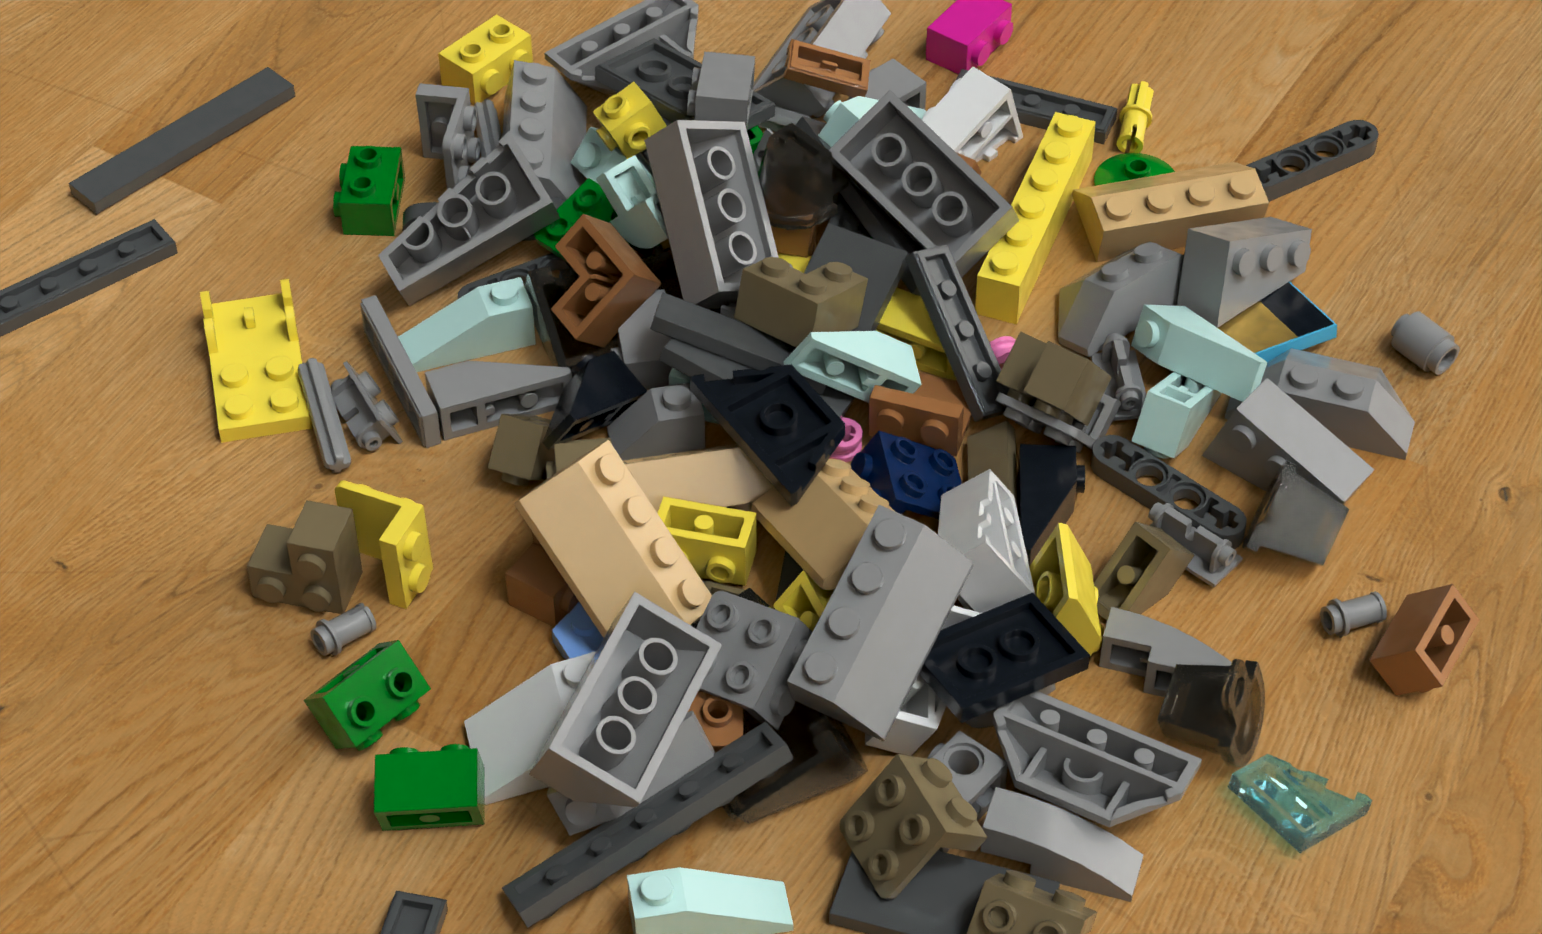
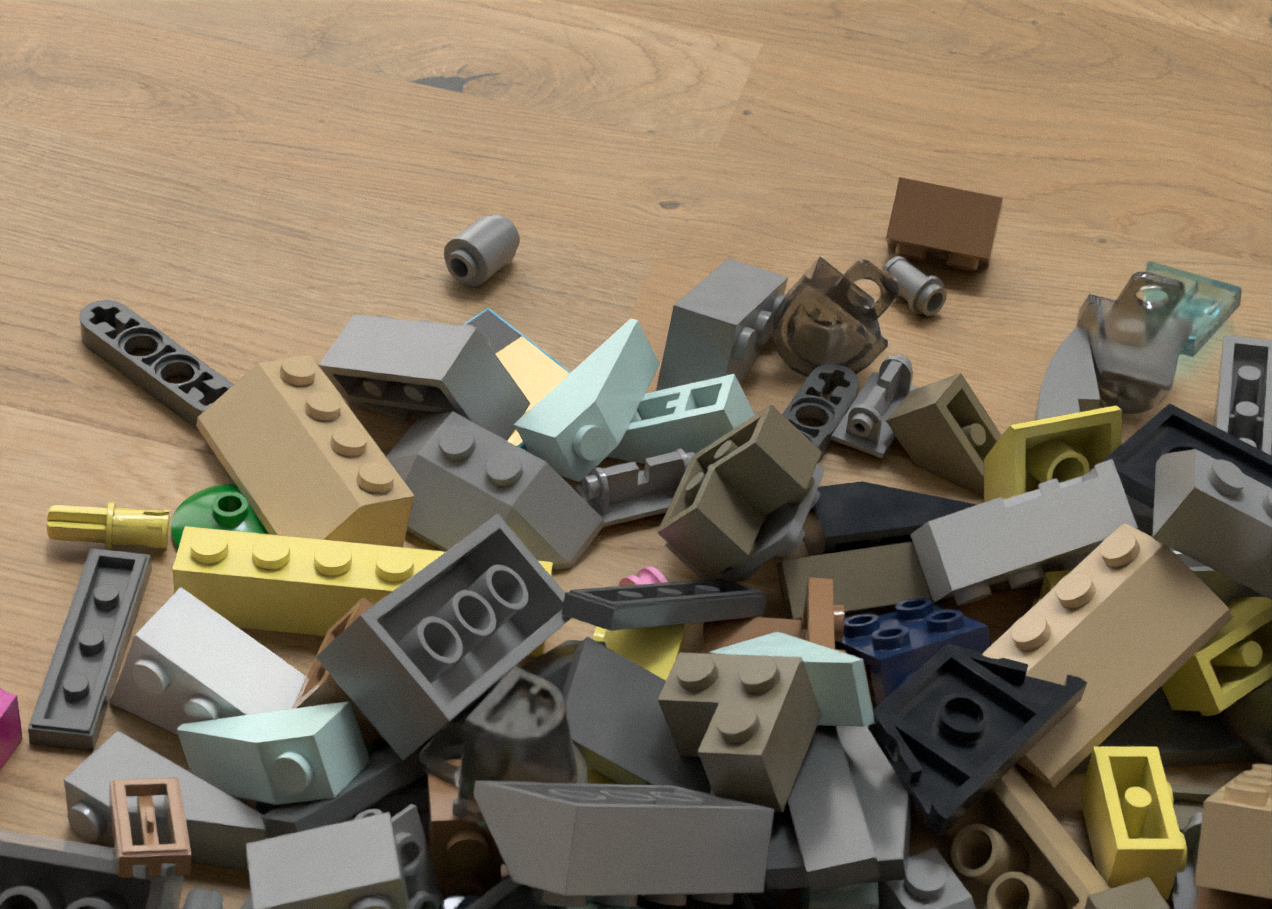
camera: 110 degrees left, 5 degrees down
(1345, 398) = (591, 302): light grey wedge -> none

